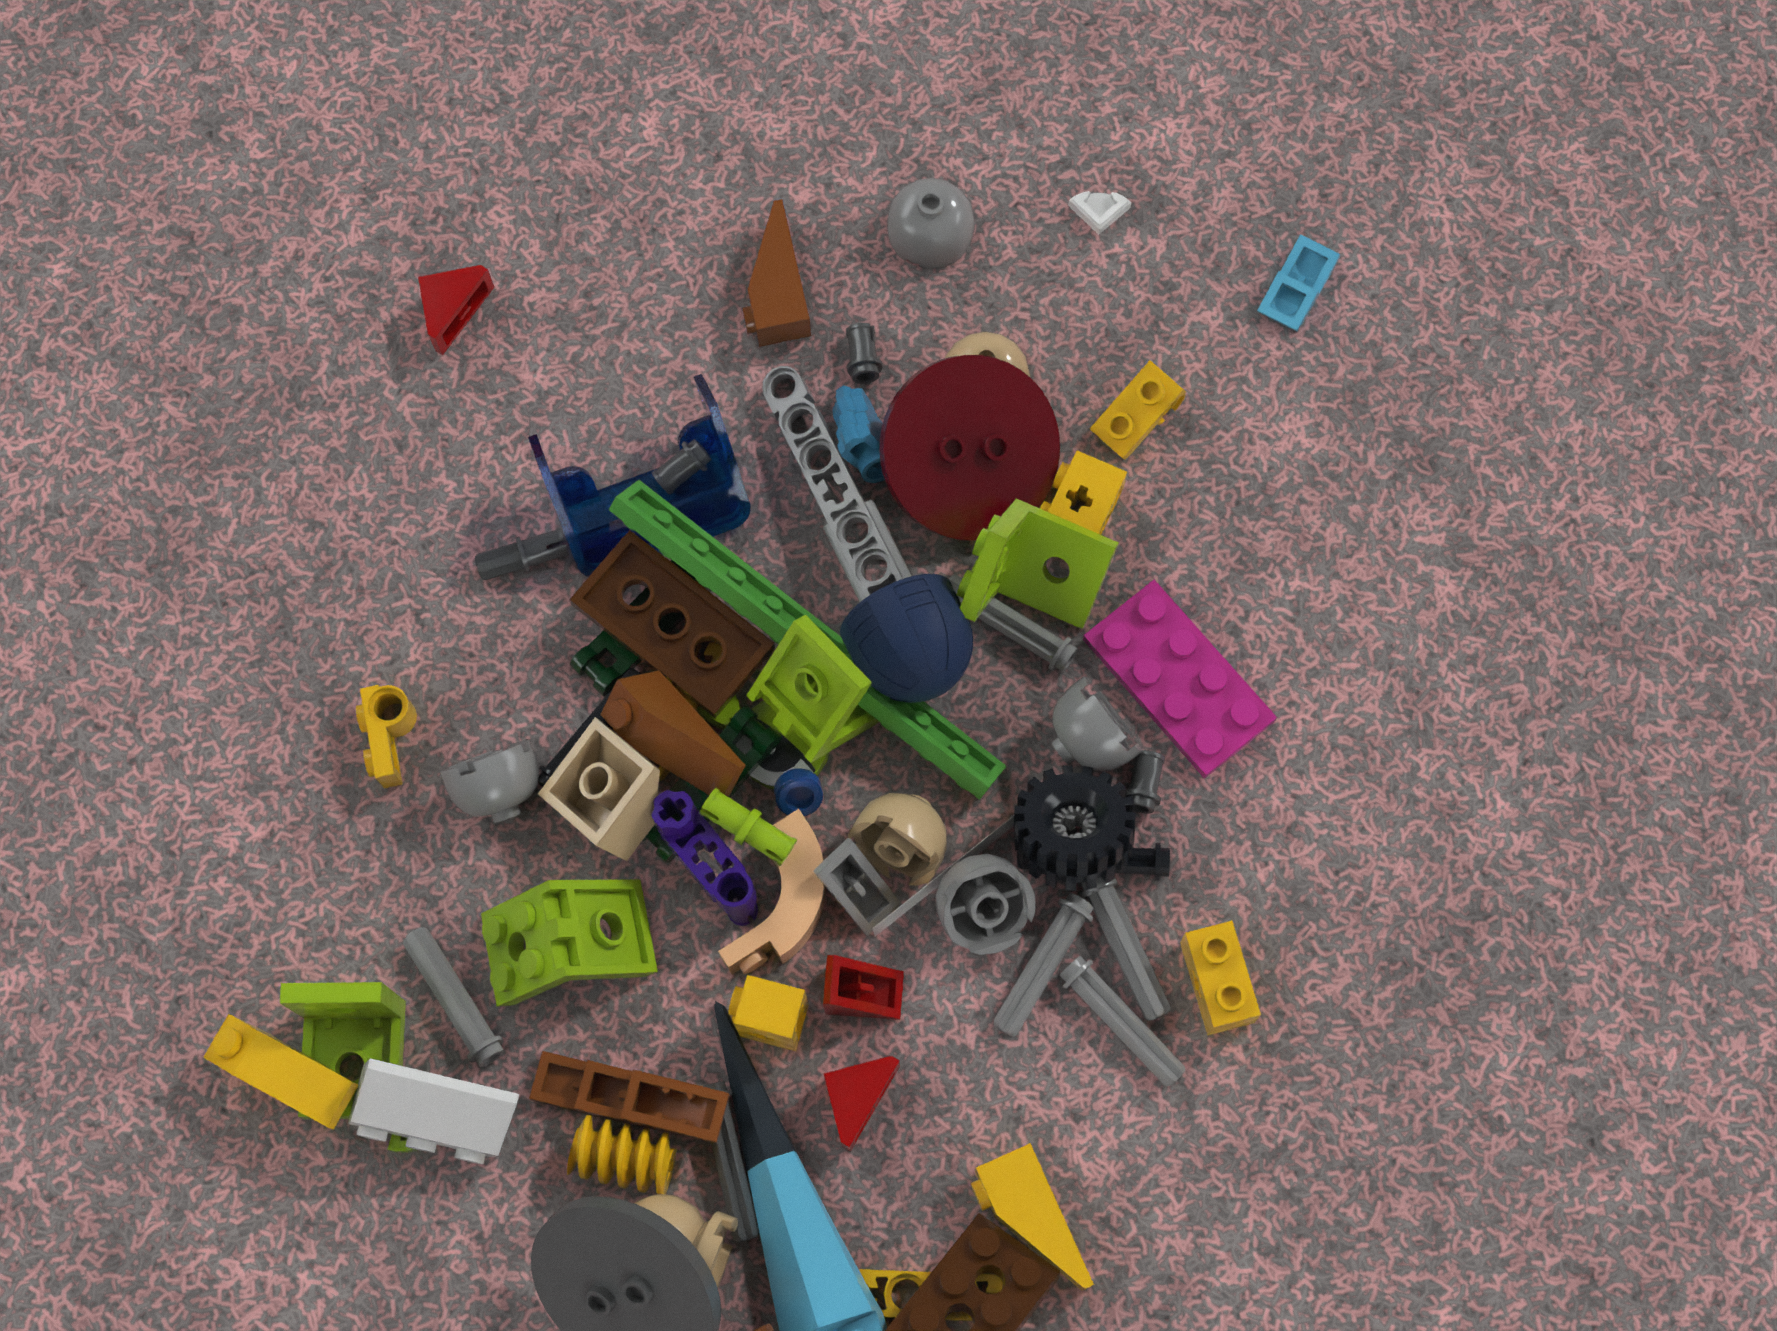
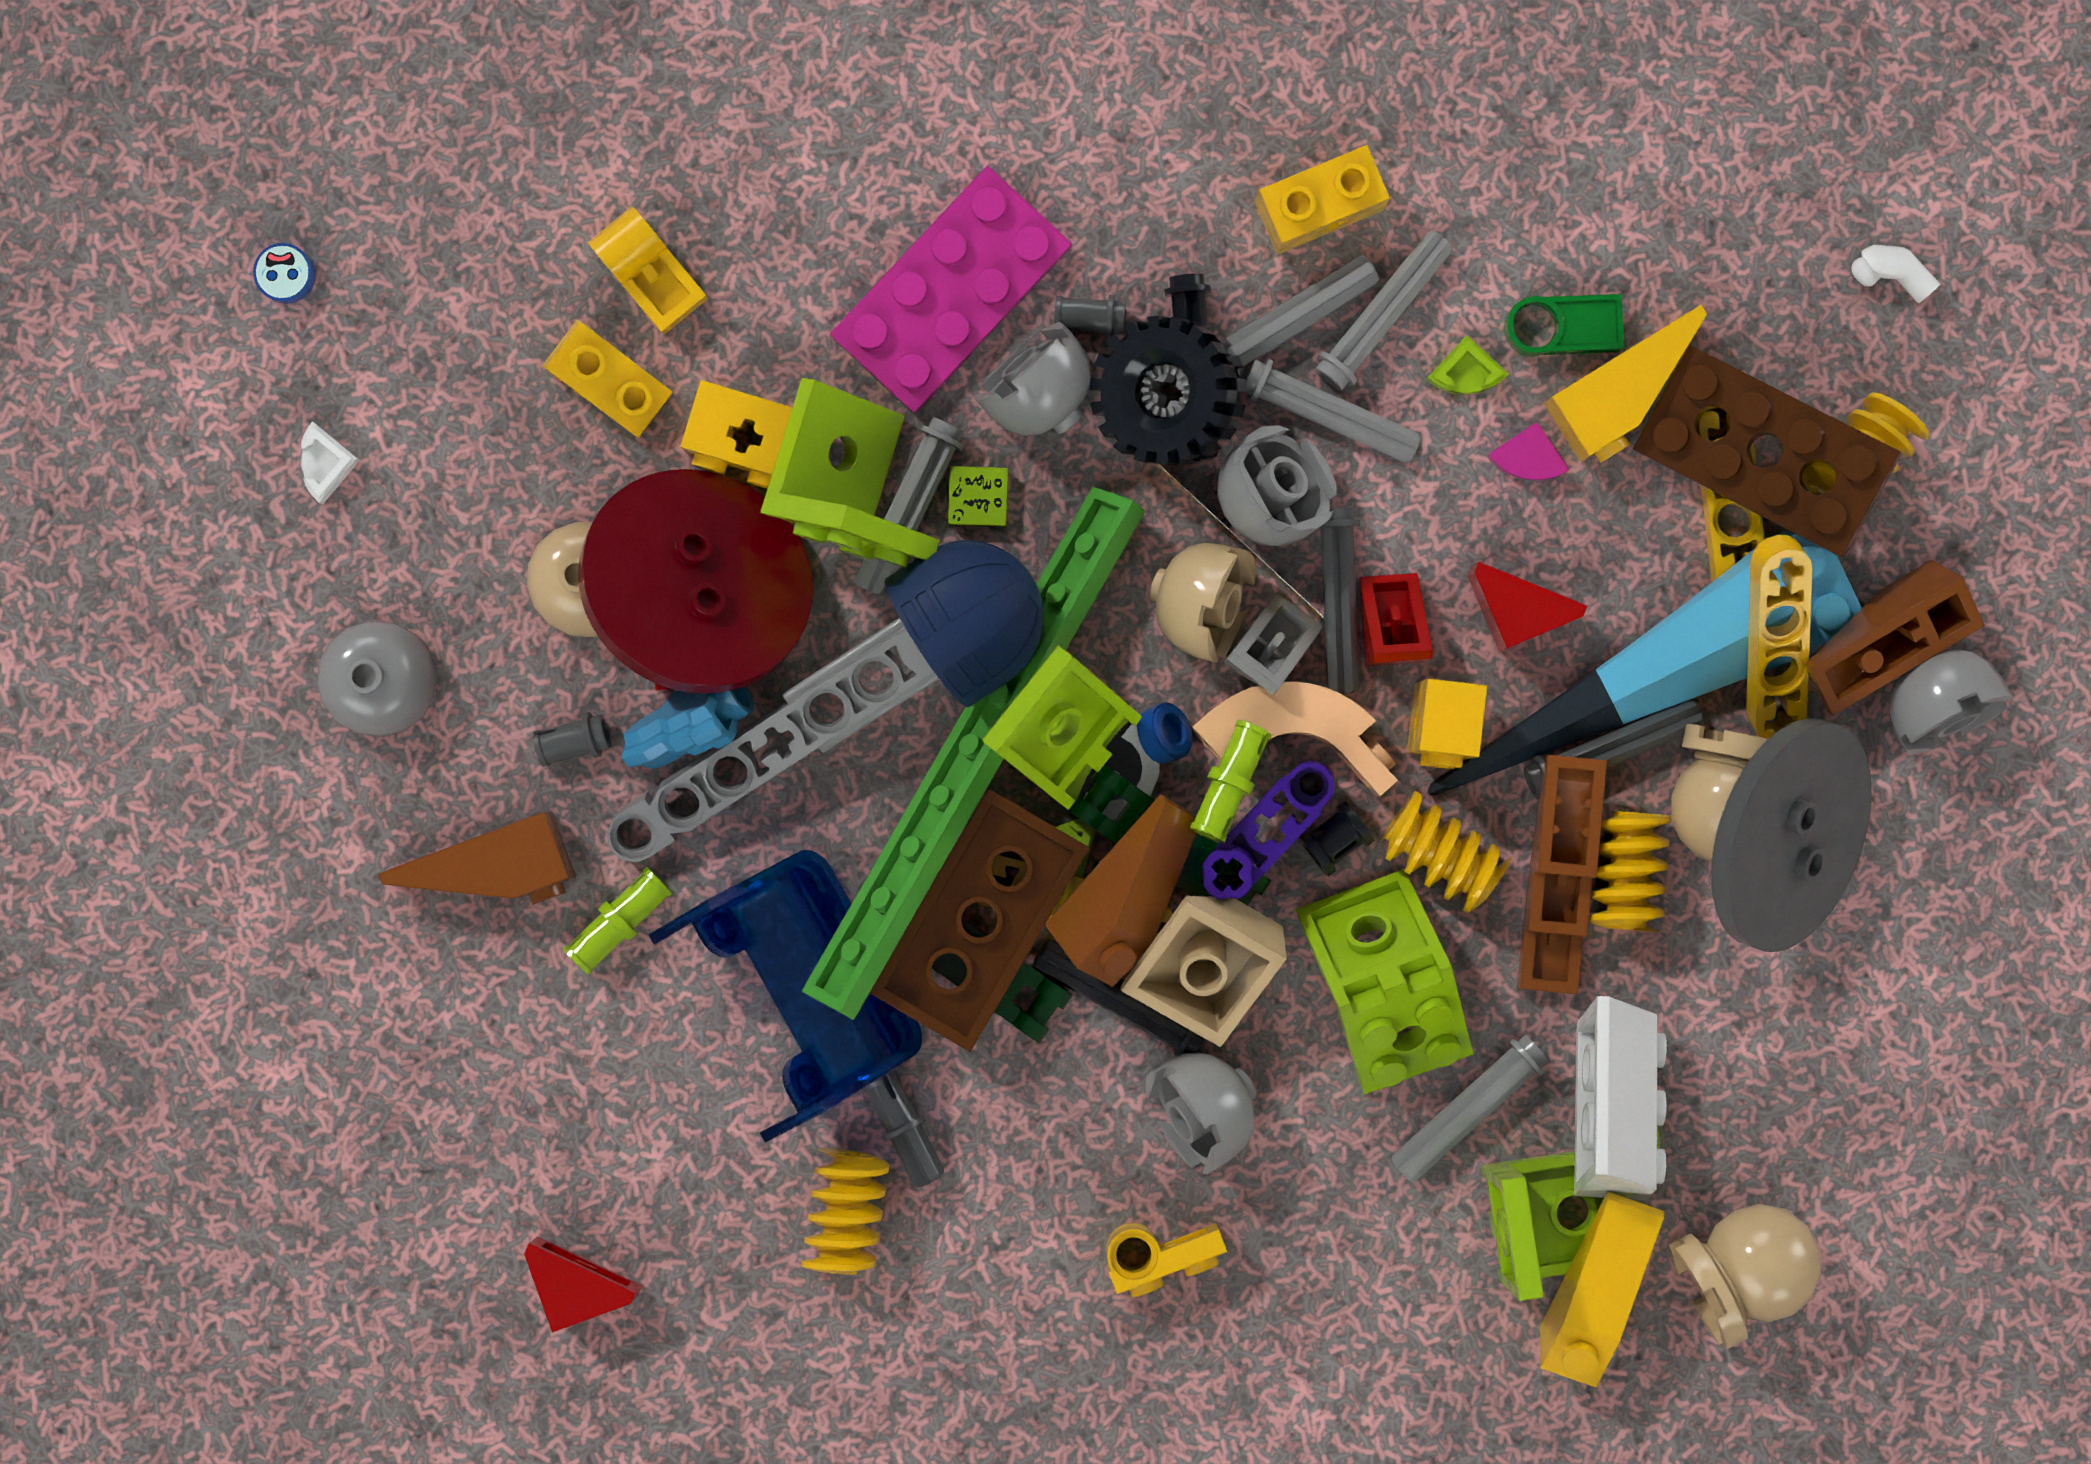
camera: 105 degrees left, 15 degrees up
(272, 1203) = (1753, 1267): none -> tan tile
(466, 503) = (846, 1212): none -> yellow piece
(663, 1001) = (1443, 852): none -> yellow piece
(682, 466) = (763, 944): dark grey pin -> none
(691, 917) = (1336, 838): none -> black bush
(719, 368) = (617, 921): none -> lime pin
(793, 1307) = (1785, 640): none -> yellow beam
(887, 950) = (1340, 601): none -> dark grey axle
(984, 1126) = (1529, 456): none -> dark pink tile
(1010, 677) = (978, 496): none -> lime tile
(1064, 1084) = (1467, 370): none -> lime tile
(1091, 1187) = (1581, 324): none -> green piece
(1224, 448) = (647, 270): none -> yellow plate
(1246, 197) = (284, 273): none -> tile
(1299, 283) = (399, 194): medium azure slope -> none

